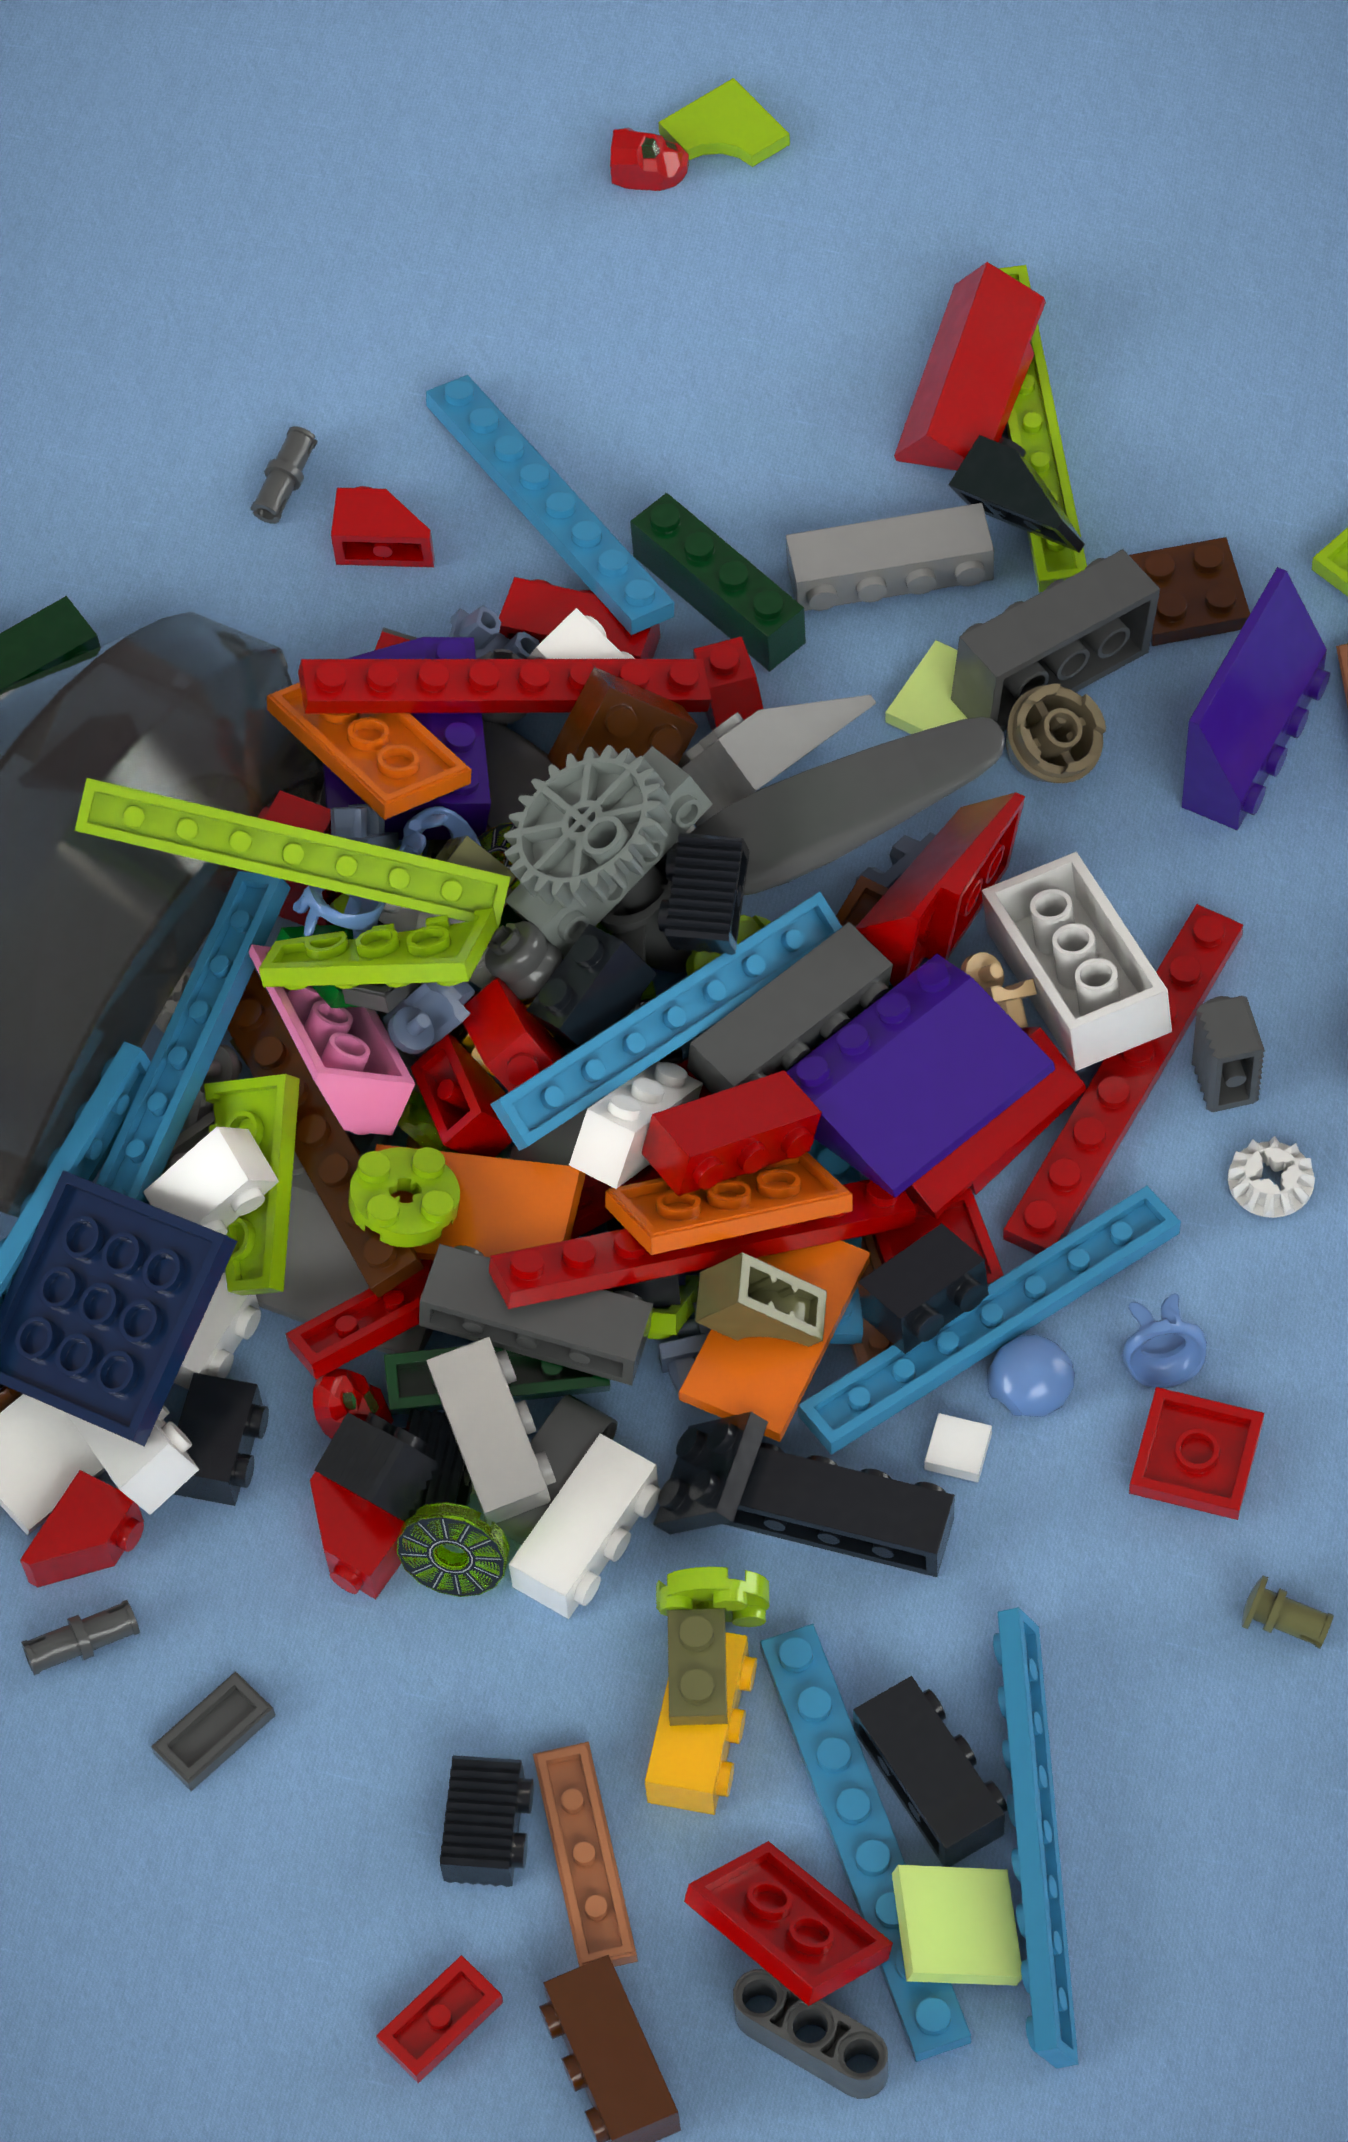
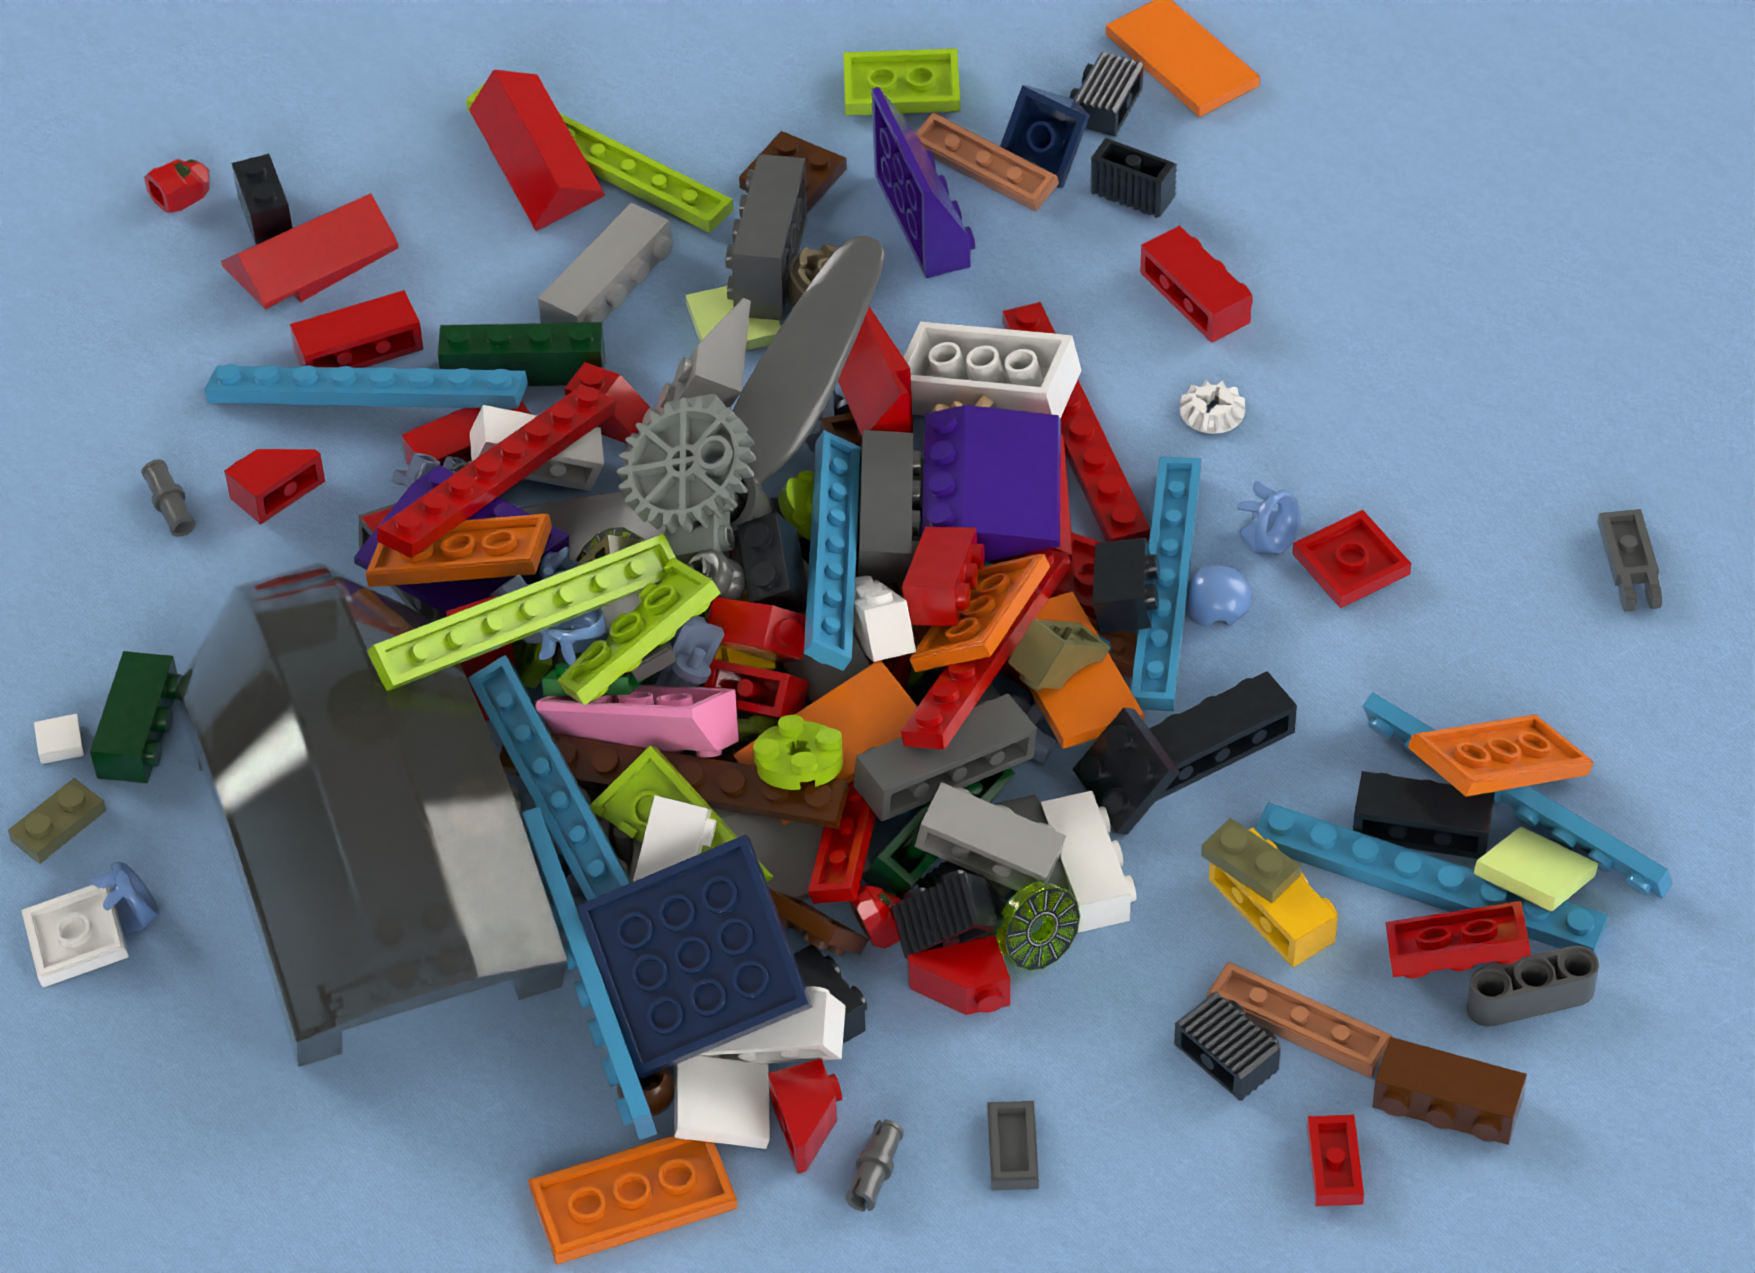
camera: 50 degrees left, 10 degrees down
(270, 1370) = (816, 926): none -> reddish brown plate
(608, 442) = (359, 334): none -> red brick
(624, 717) = (588, 447): reddish brown brick -> none
(670, 325) = (313, 253): none -> red slope
(687, 235) = (261, 197): none -> black brick
(705, 893) = (785, 463): black brick -> none
(711, 1589) = (1204, 821): lime plate -> none
(726, 124) = (206, 132): lime tile -> none
(958, 1447) = (1225, 660): white tile -> none
(1012, 491) = (647, 182): black slope -> none
(1050, 1783) = (1500, 755): none -> orange tile
(1227, 1053) = (1123, 357): dark grey brick -> none
(1285, 1614) = (1488, 594): olive pin -> none

